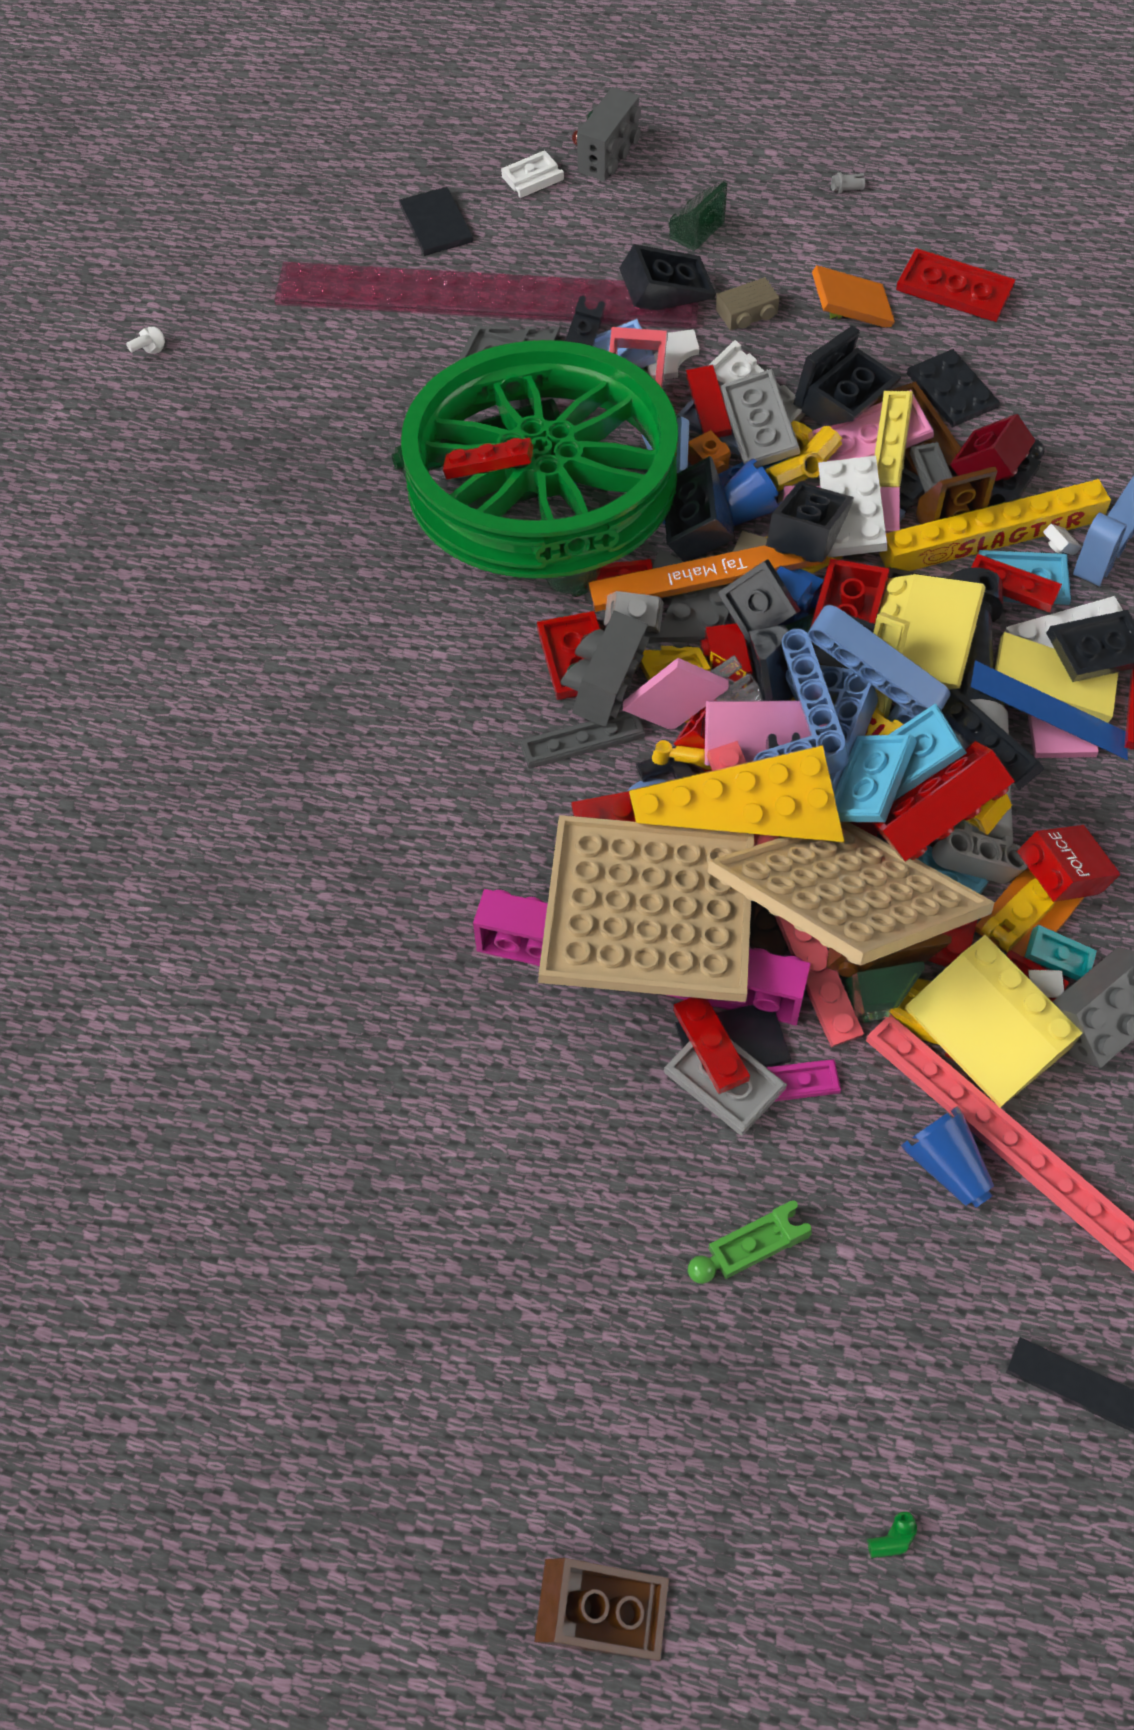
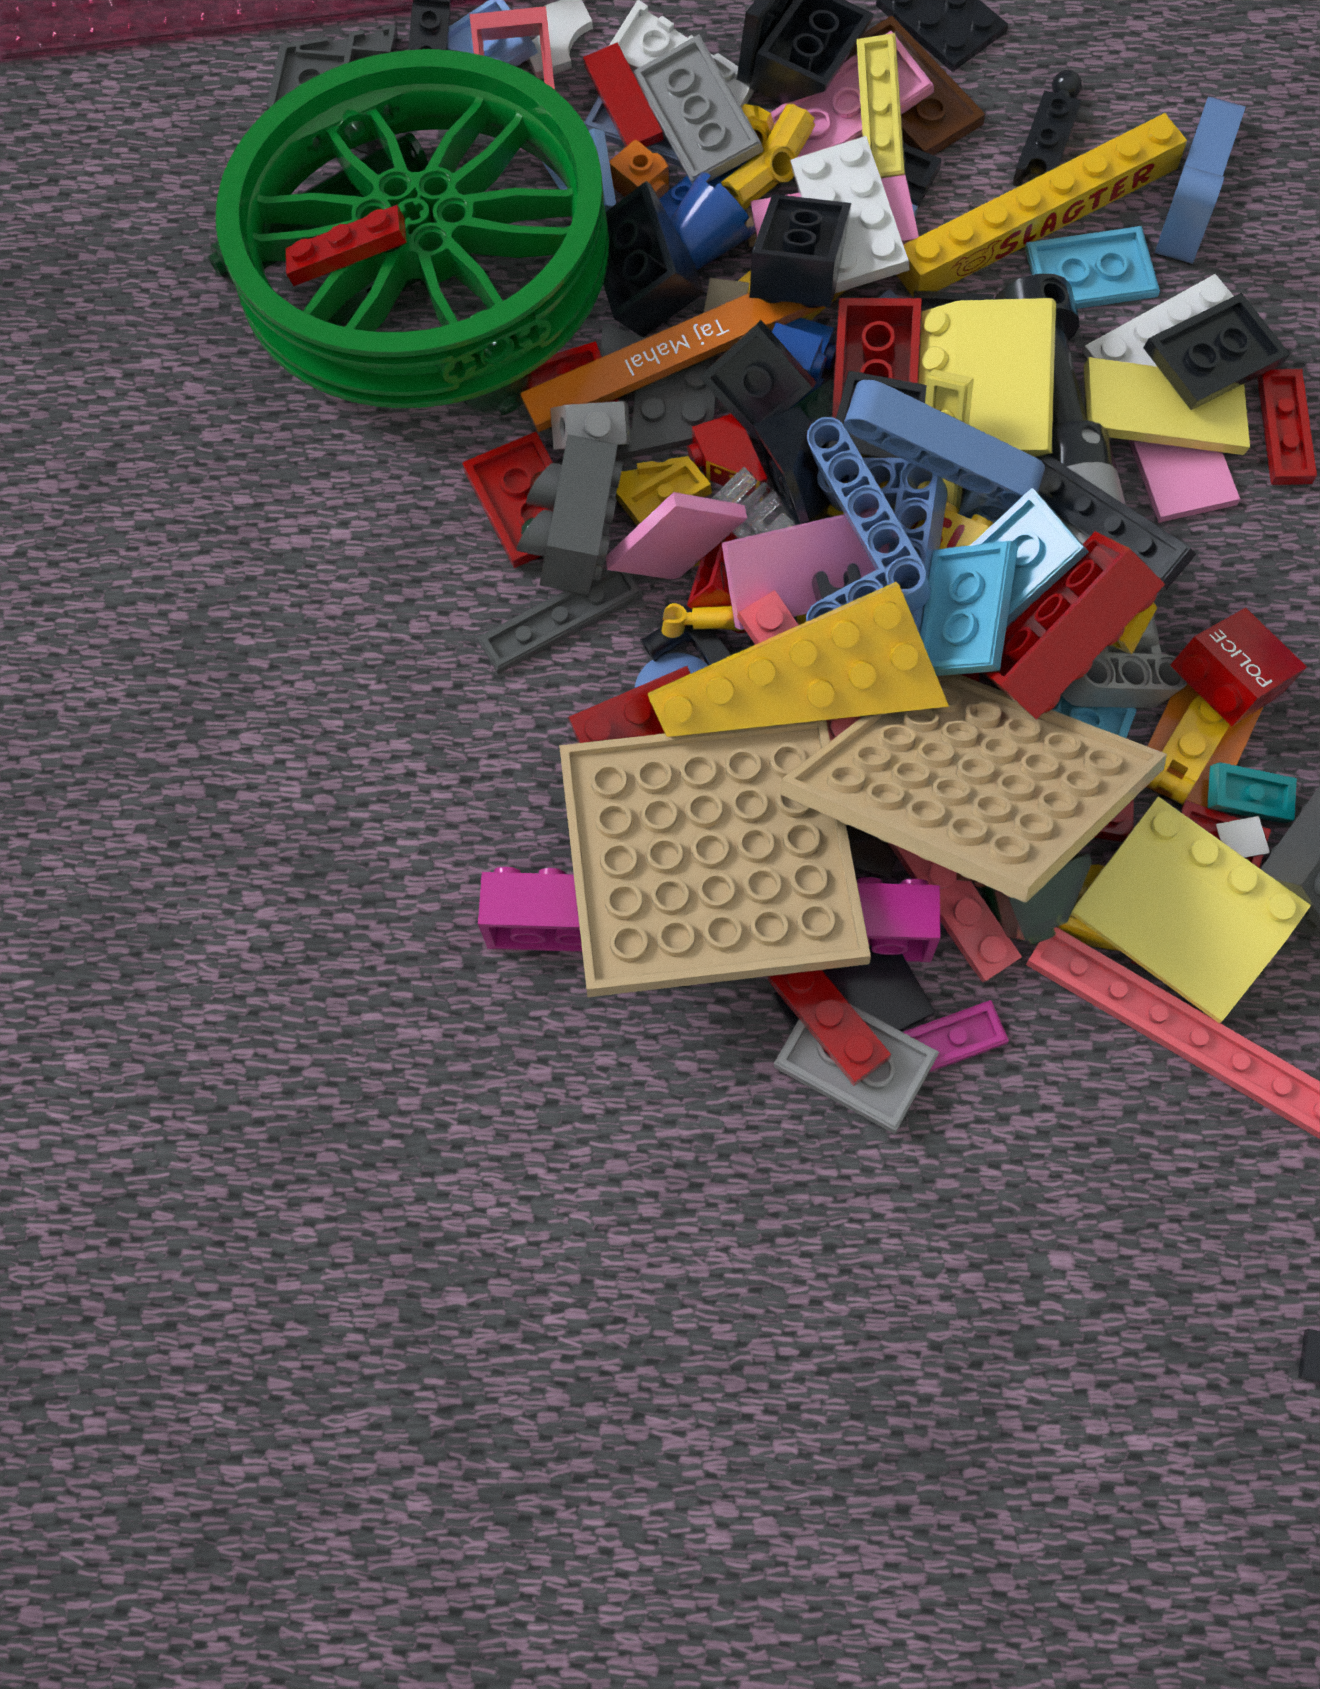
camera: 10 degrees left, 10 degrees up
(750, 1245) = (936, 1283): bright green plate -> none
(898, 1538) = (1211, 1635): green arm -> none
(930, 464) = (942, 139): dark grey tile -> none
(952, 1158) = (1173, 1105): blue cone -> none
(956, 496) = (985, 176): reddish brown slope -> none
(995, 445) = (1019, 101): dark red brick -> none
(1022, 585) = (1093, 282): red plate -> none
(1049, 709) = (1167, 455): blue sticker -> none
(1061, 540) = (1131, 208): white plate -> none

